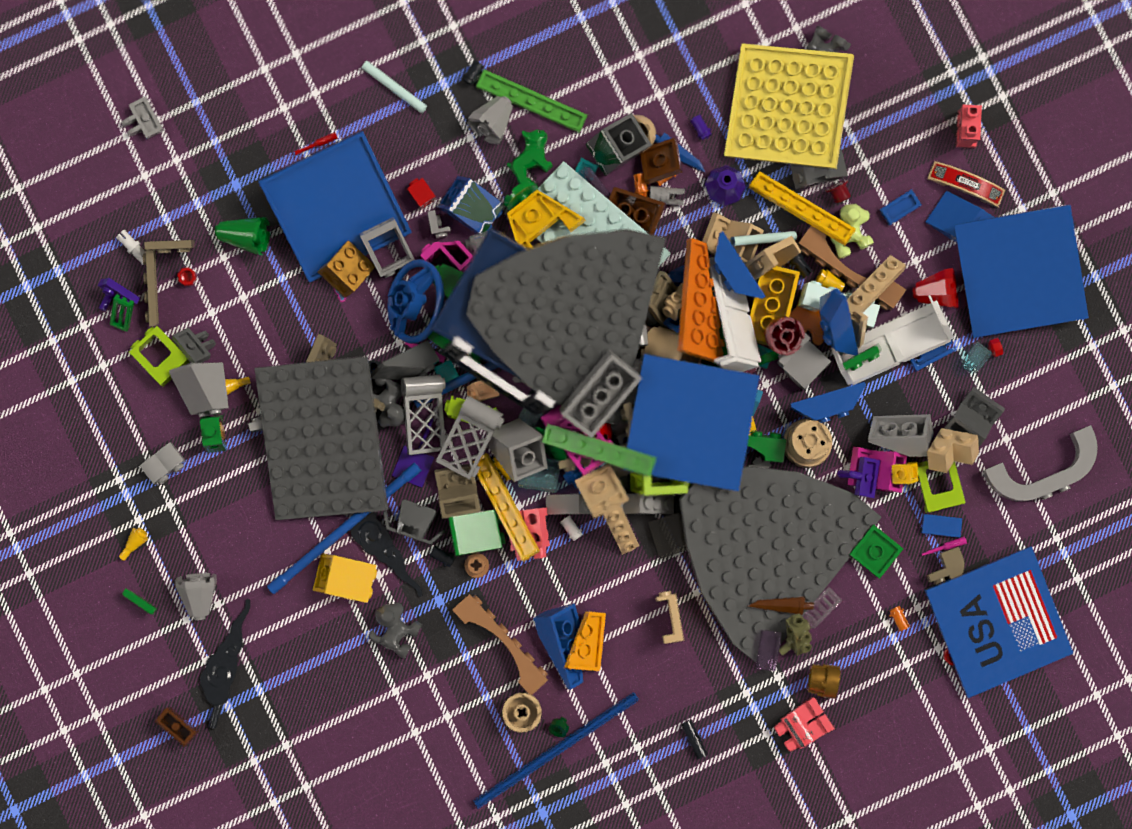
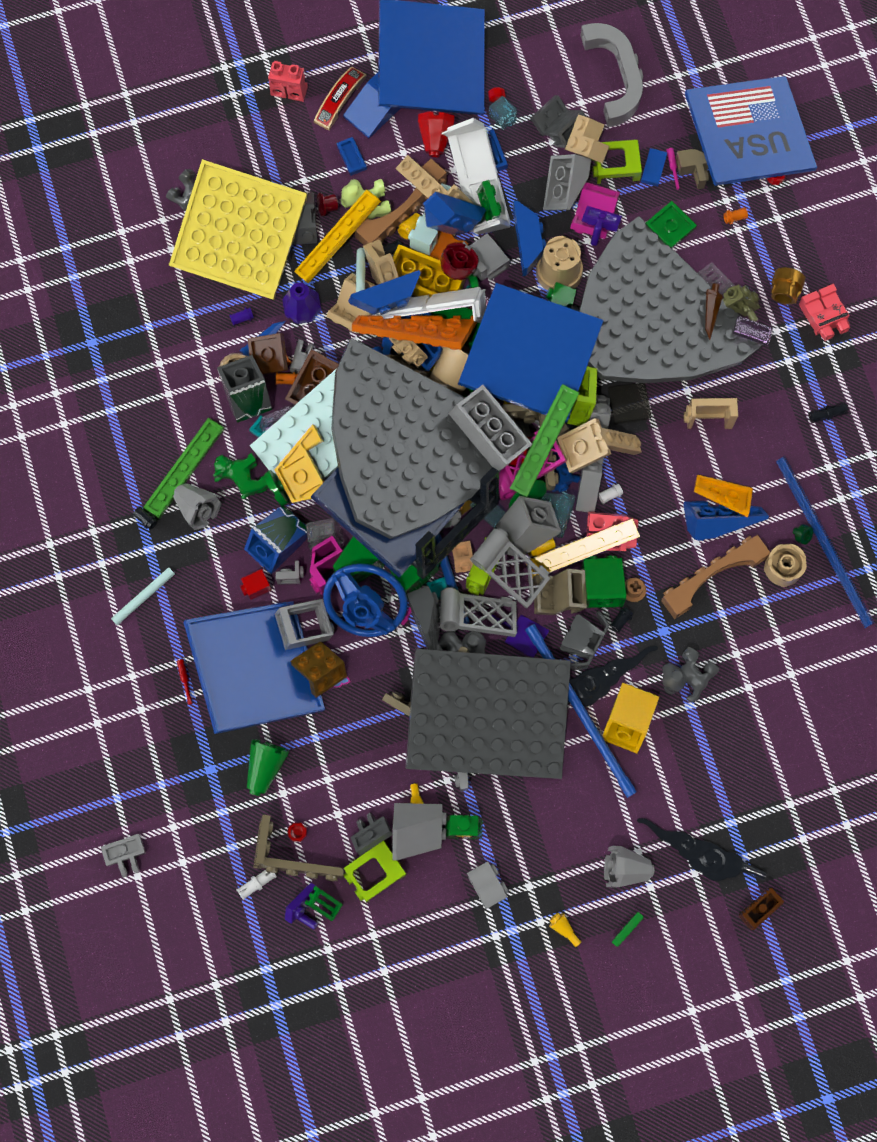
camera: 80 degrees left, 10 degrees down
(905, 473) = (604, 183): yellow bracket -> none

